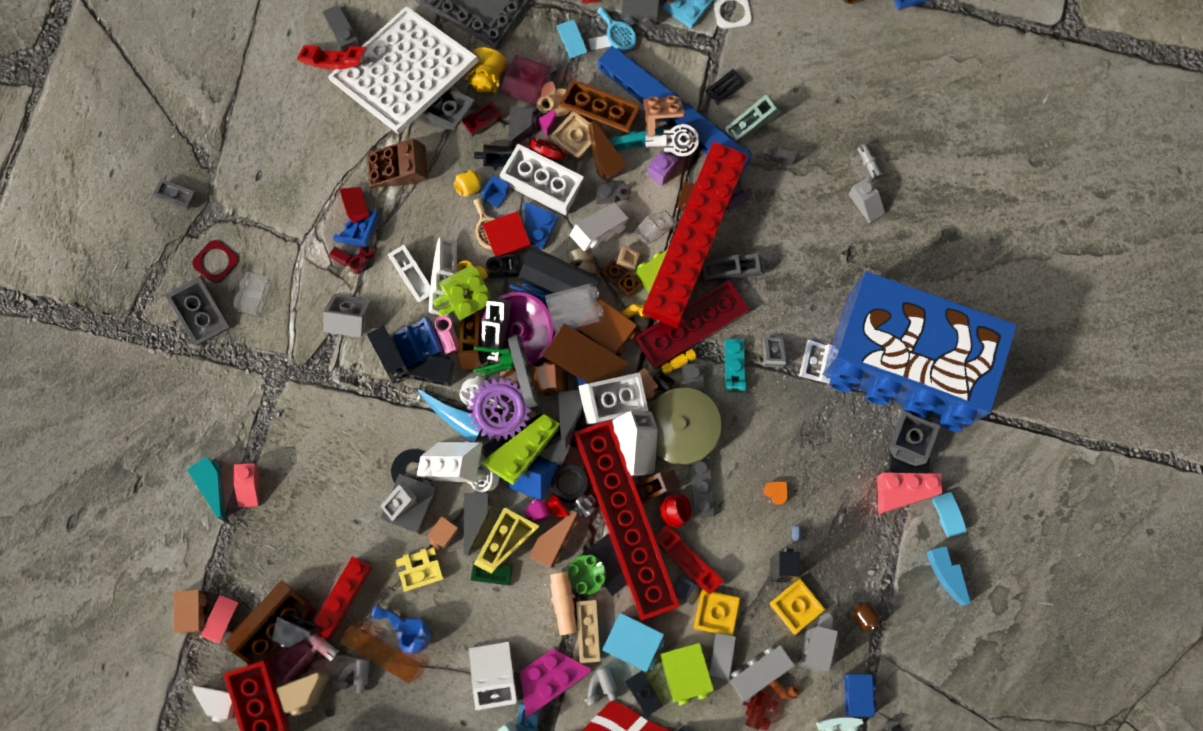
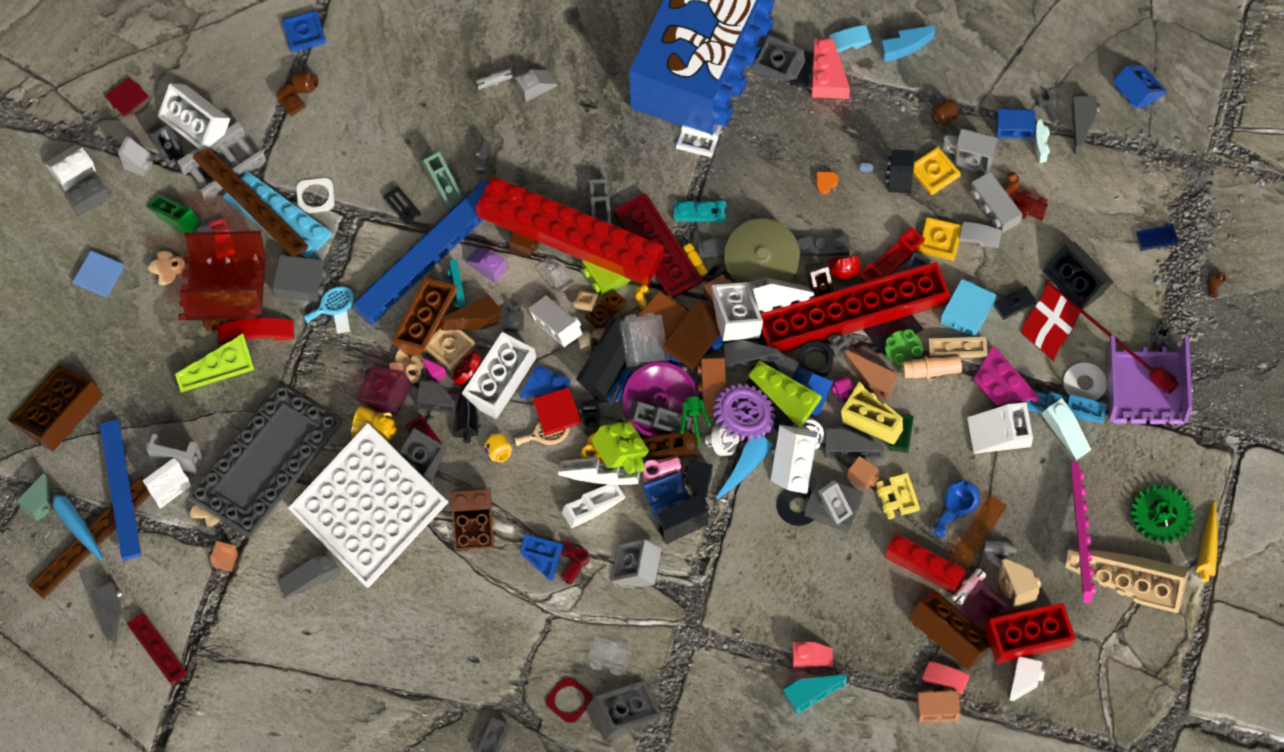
camera: 80 degrees left, 10 degrees down
(293, 630) = (960, 597): black slope -> none
(333, 60) = (346, 580): red slope -> none
(354, 203) = (515, 556): red slope -> none
(495, 191) = (506, 423): blue panel -> none
(523, 371) = (707, 387): dark grey beam -> none
(557, 507) = (839, 368): red slope -> none
(572, 39) = (335, 347): medium azure slope -> none
(607, 683) = (1003, 333): light grey plant -> none
(661, 108) = (434, 259): nougat bracket -> none
(678, 141) = (464, 246): white pin -> none
(686, 673) = (996, 264): lime brick -> none
(773, 352) = (690, 173): light grey slope -> none

